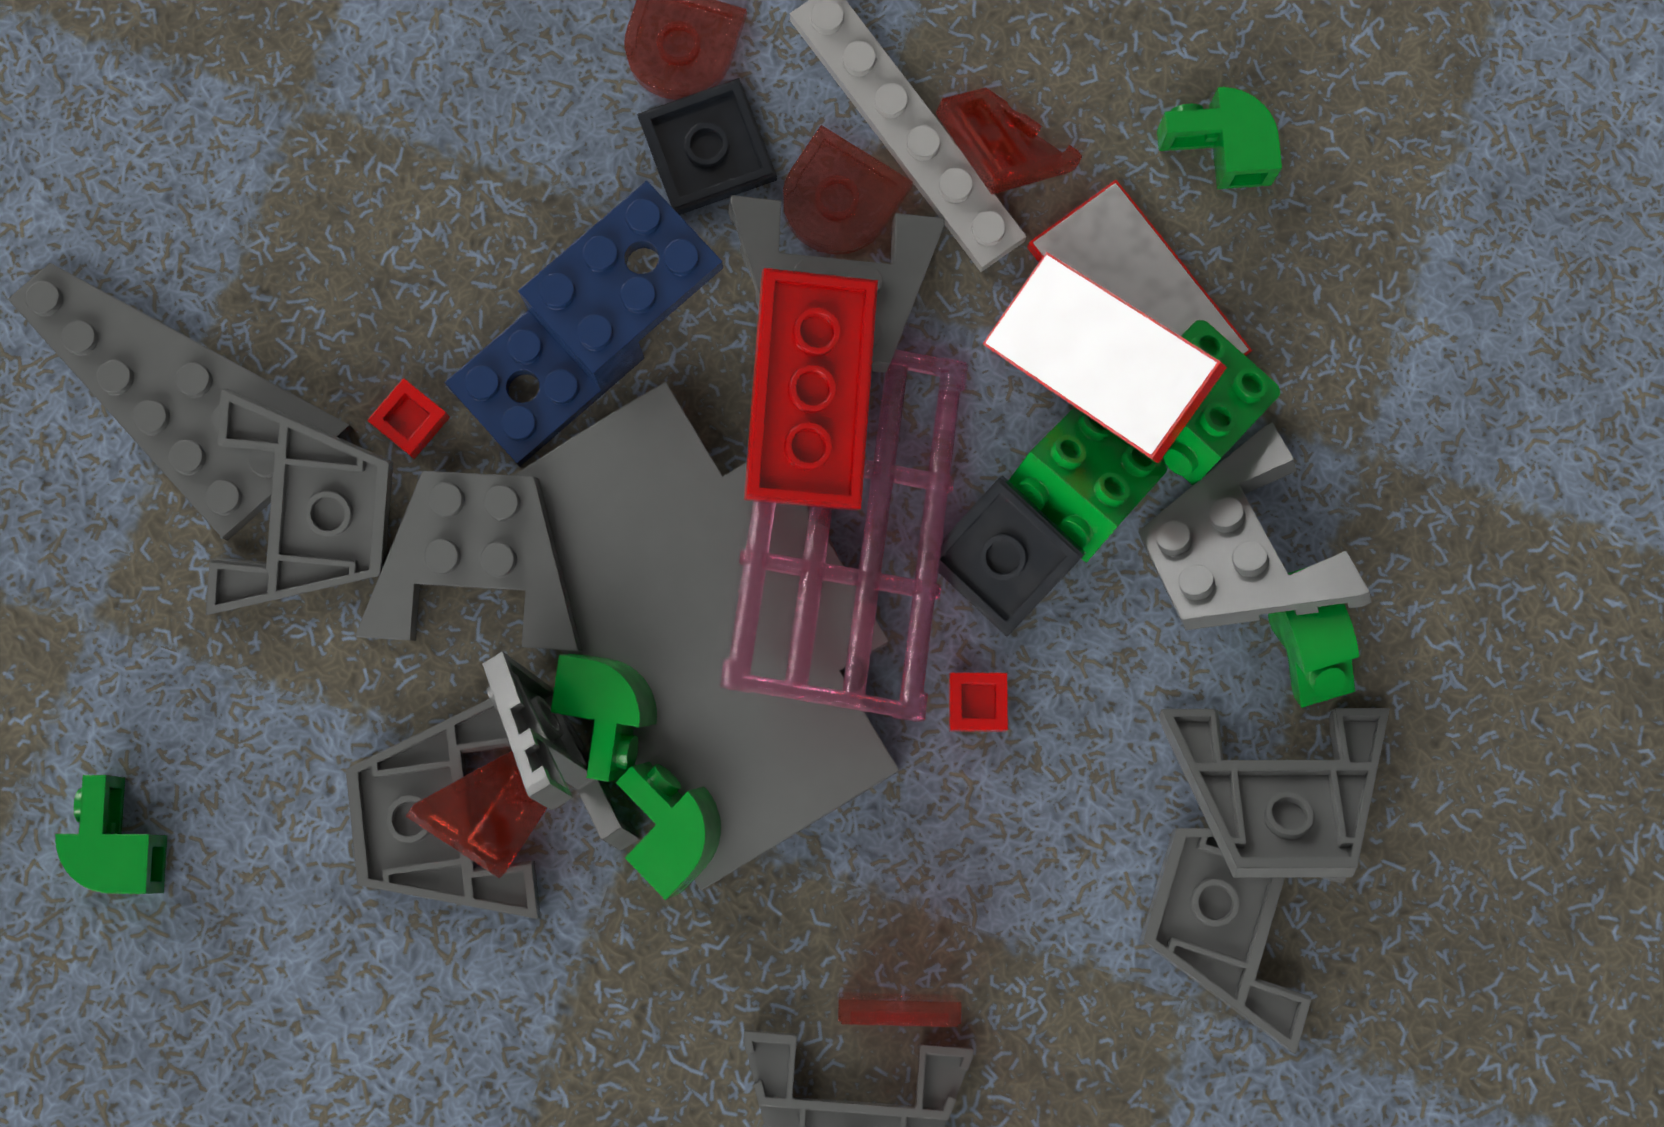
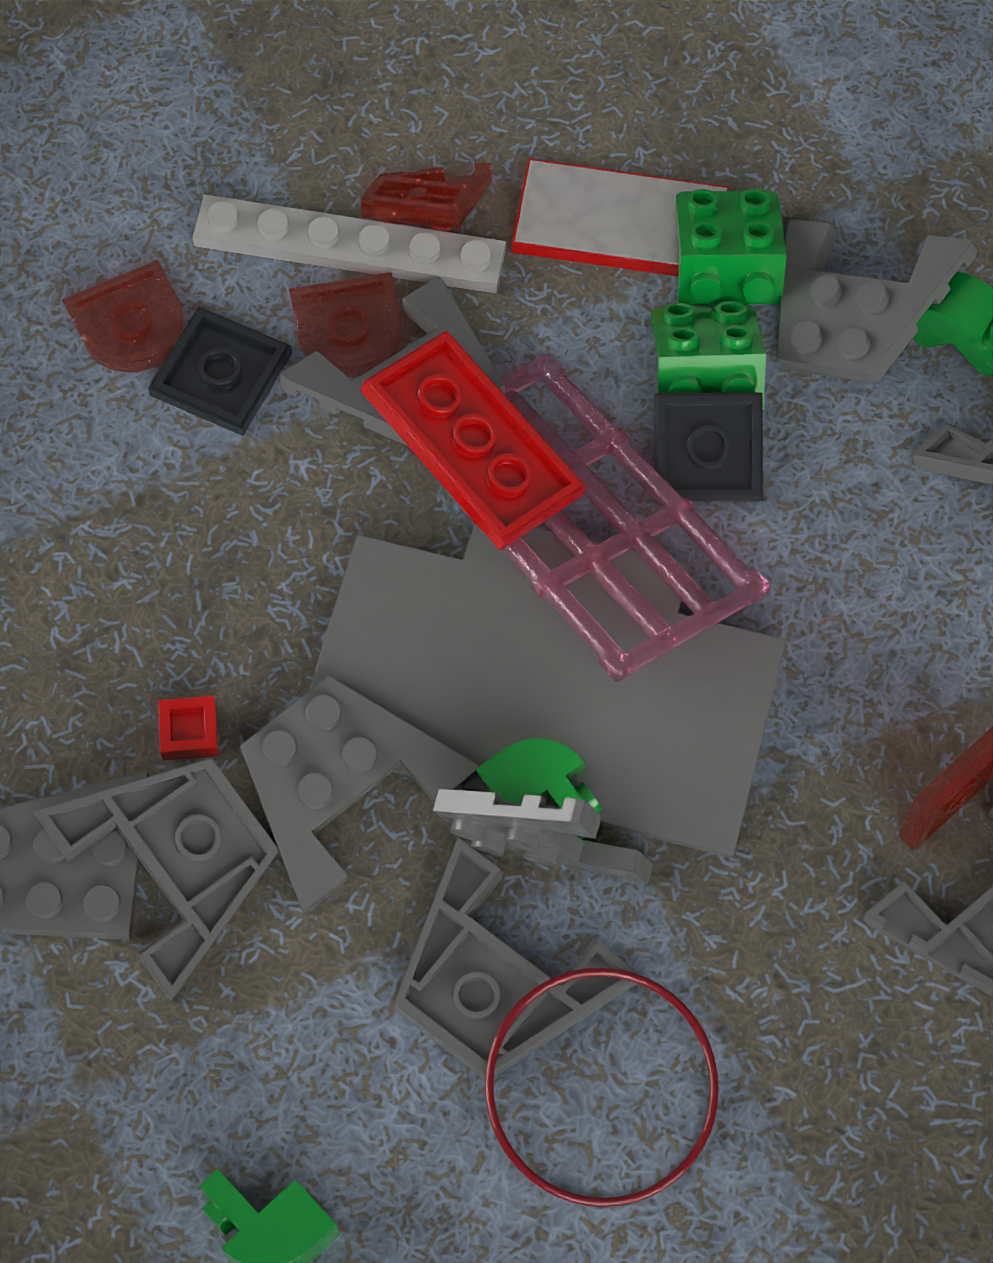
camera: 45 degrees left, 15 degrees down
(361, 1051) = (508, 1149): none -> dark red piece
(482, 814) = (532, 929): clear red wing -> none
(584, 322) = (257, 548): dark blue bracket -> none
(684, 831) = (688, 817): green brick -> none
(978, 702) = (789, 556): red plate -> none
(1104, 357) = (642, 259): tile -> none
(1237, 130) = (578, 64): green brick -> none

